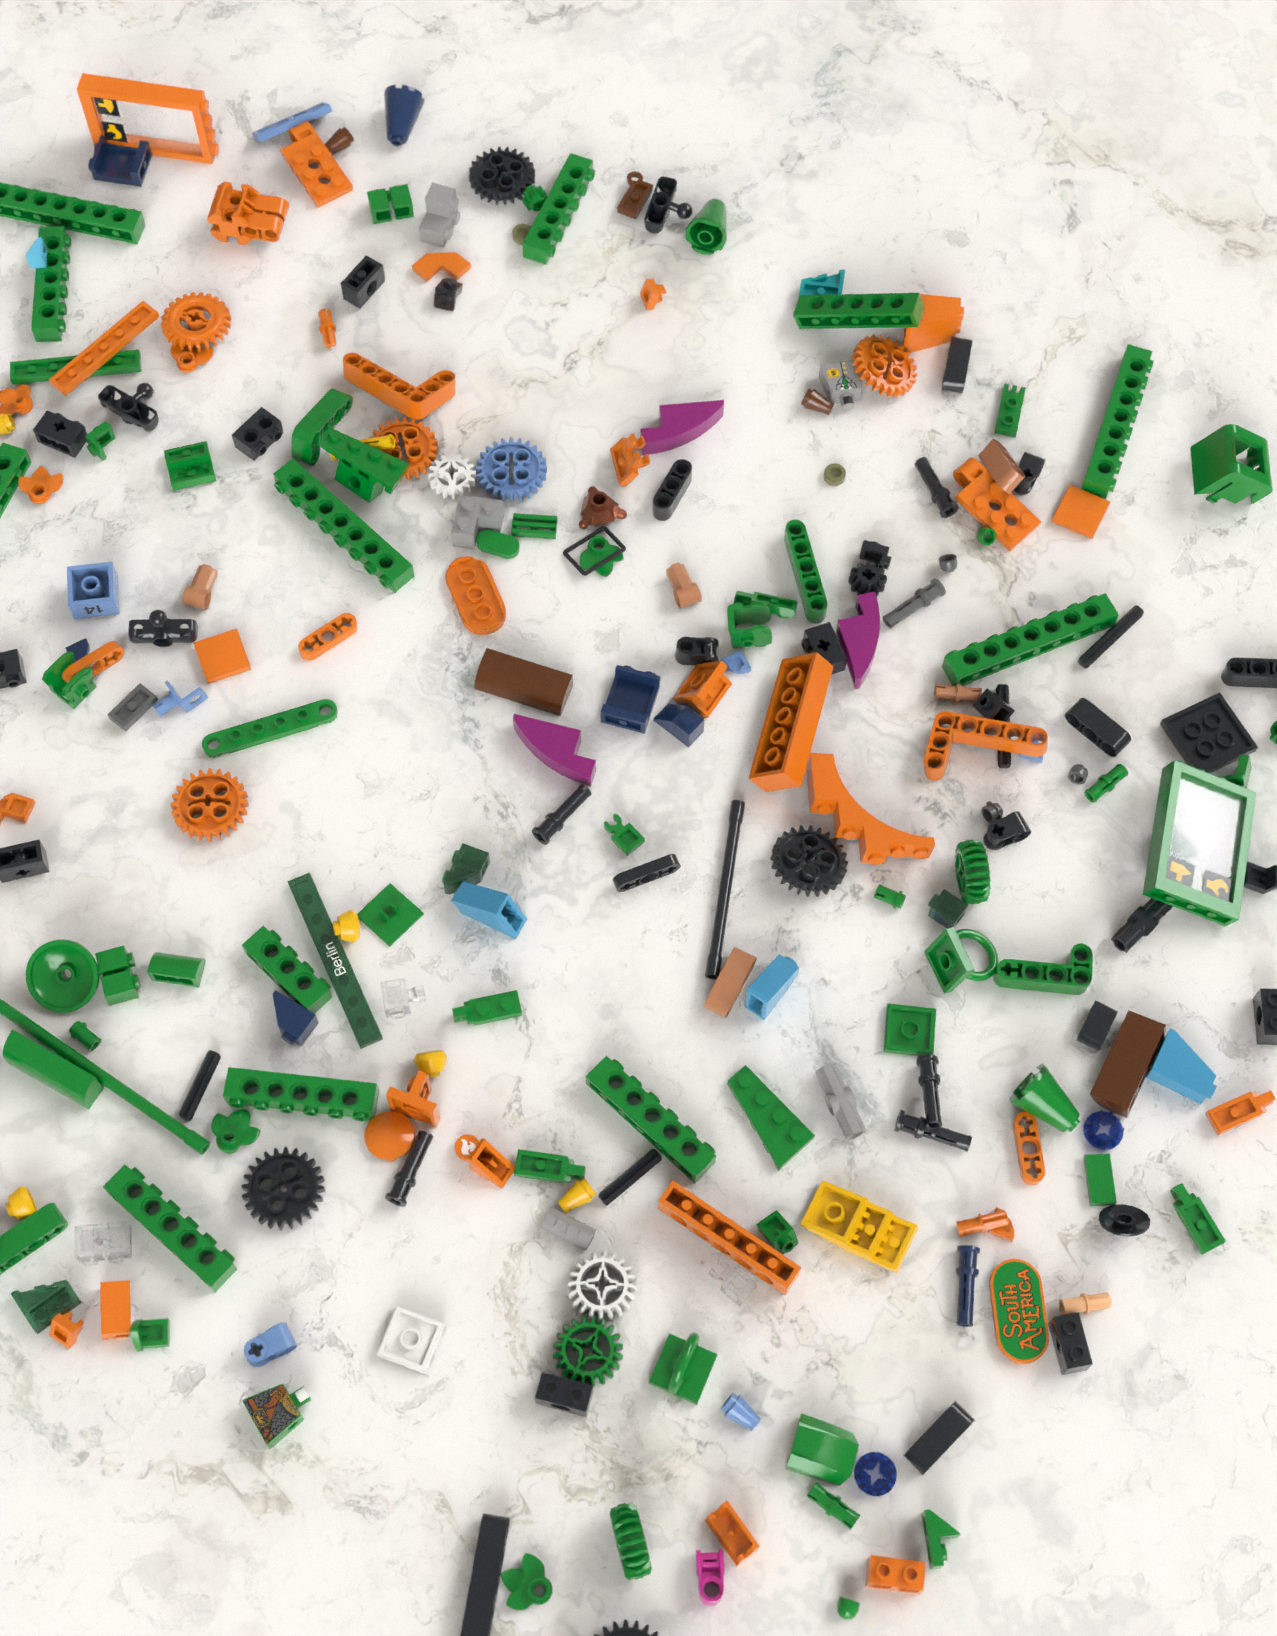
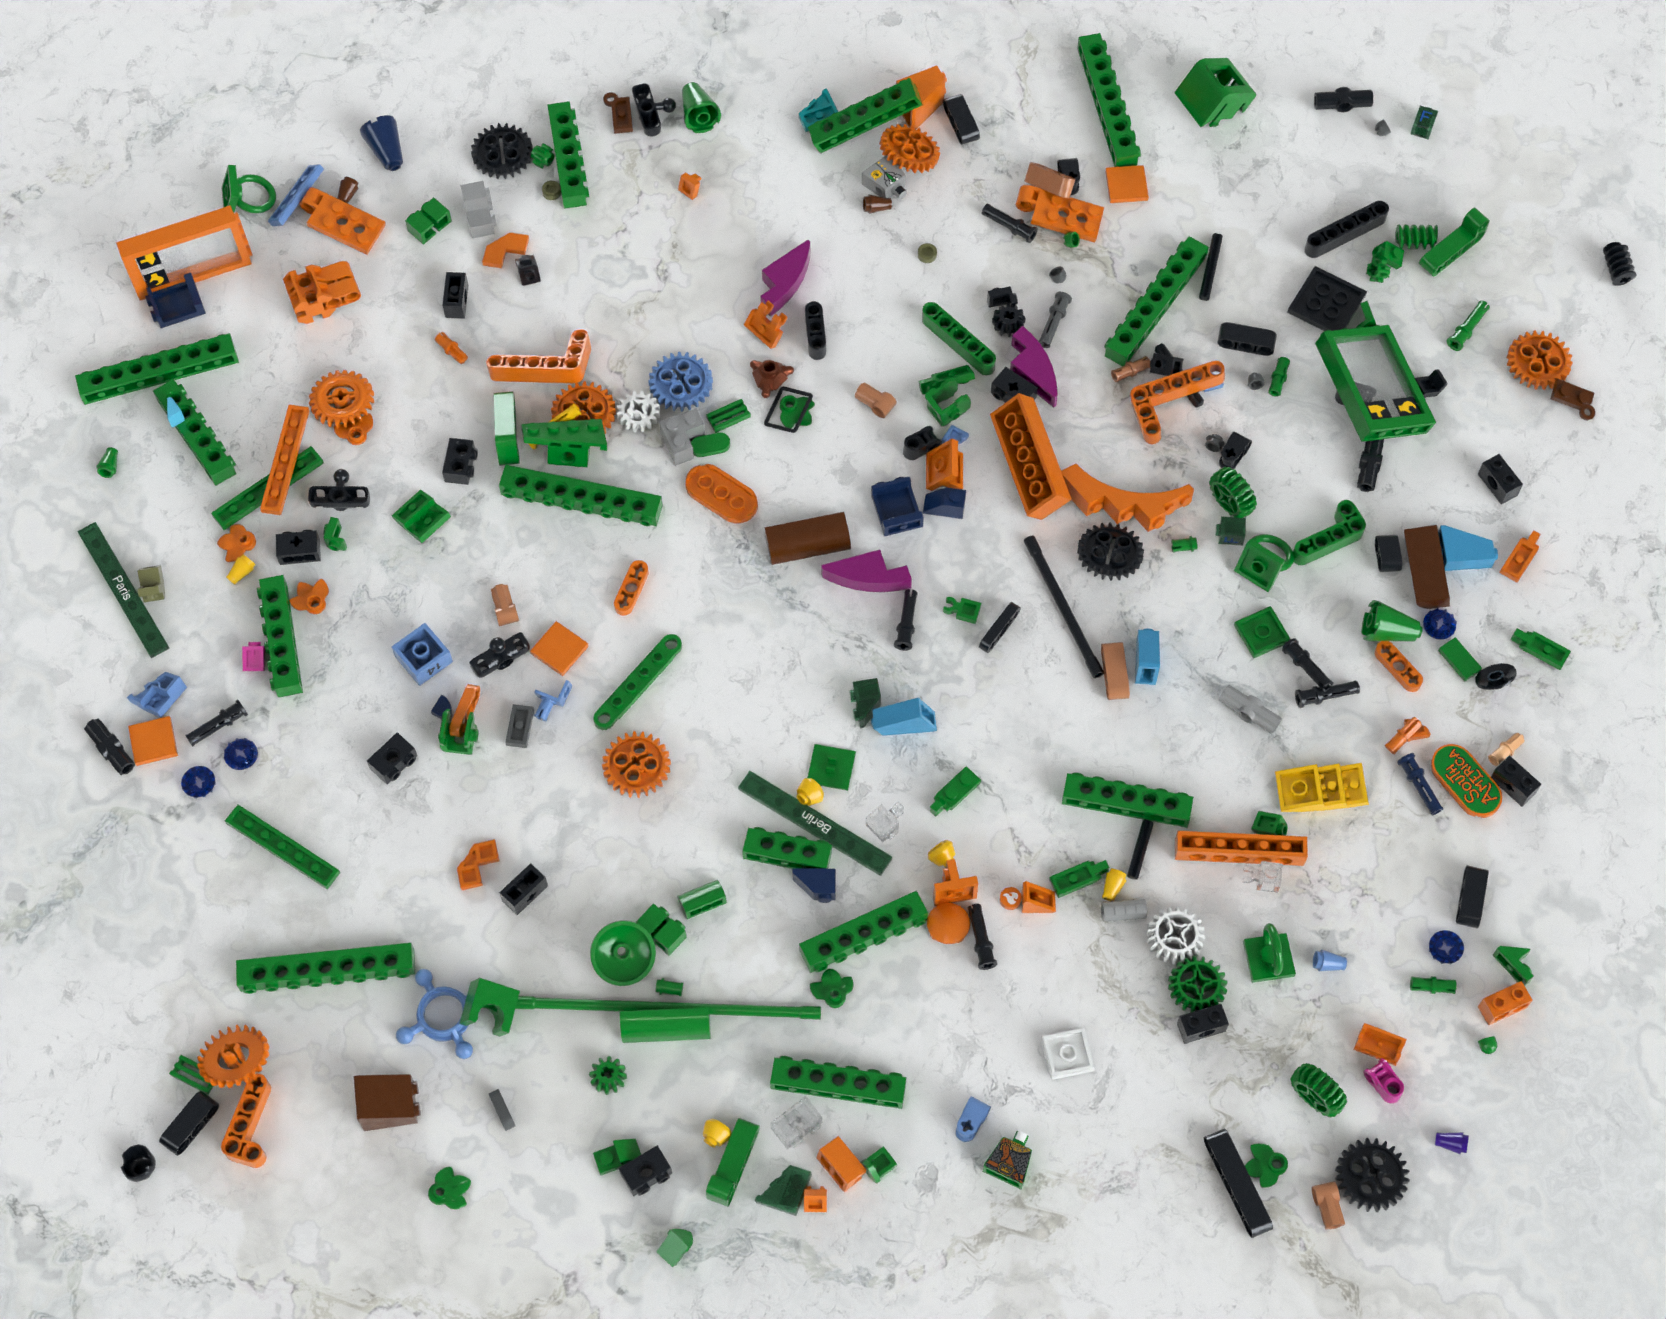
camera: 30 degrees left, 0 degrees up
(199, 1085) = (782, 971): black axle -> none
(236, 91) = (232, 191): none -> green tile
(273, 1168) = (882, 996): black gear -> none
(775, 1124) = (1213, 751): green wing -> none
(822, 1451) = (1400, 953): green slope -> none
(1009, 411) = (1023, 134): green hinge -> none

